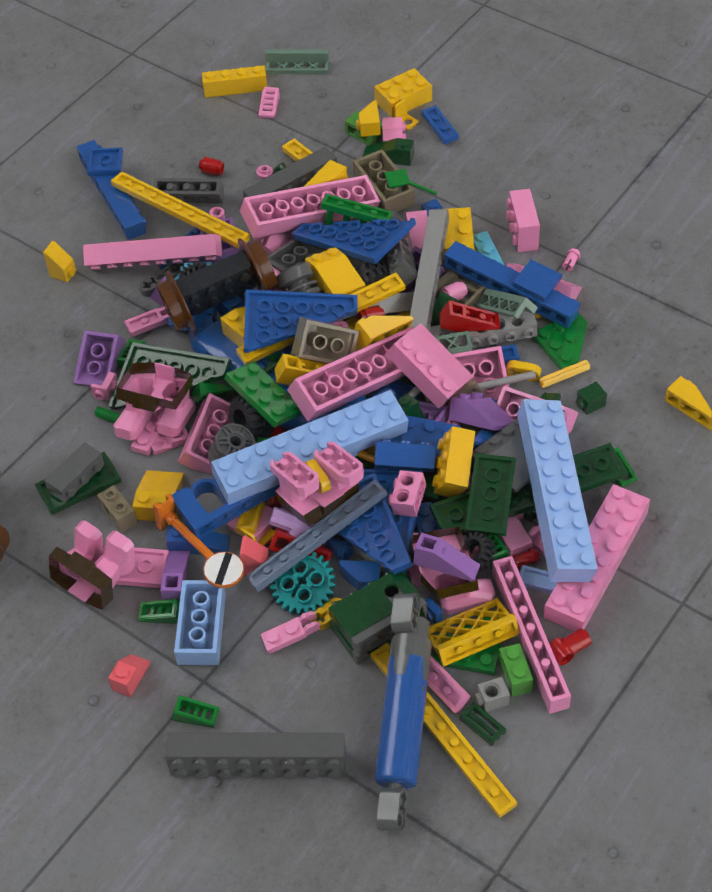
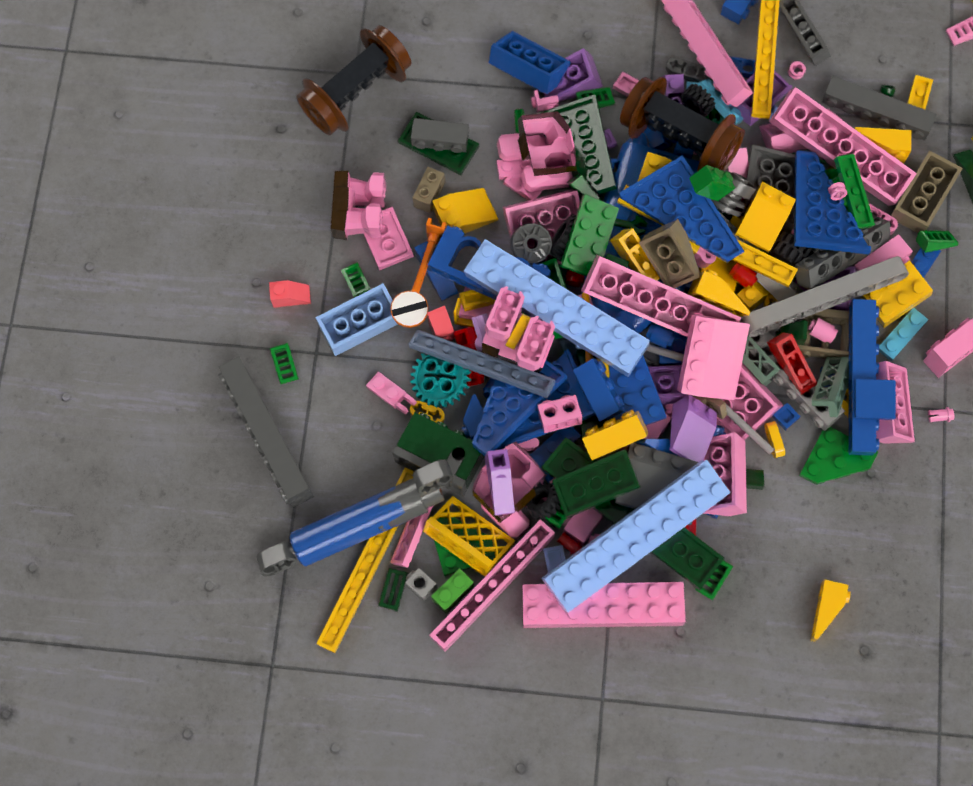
camera: 60 degrees right, 20 degrees up
(61, 378) = (528, 62): none -> blue slope
(173, 574) = (393, 272): medium lavender slope -> none
(211, 166) = (850, 29): red brick -> none
(264, 171) = (875, 83): bright pink plate -> none
(286, 278) = (712, 183): none -> green brick
(349, 217) = (837, 191): none -> bright pink bush
(400, 178) = (932, 204): green piece -> none
(410, 406) = (660, 364): dark green brick -> none
(424, 198) = (932, 240): none -> green slope
(434, 612) = (470, 499): blue plate -> none
(564, 373) = (795, 477): yellow axle -> none
(566, 648) = (497, 621): red piece -> none
(591, 398) = (777, 515): dark green brick -> none

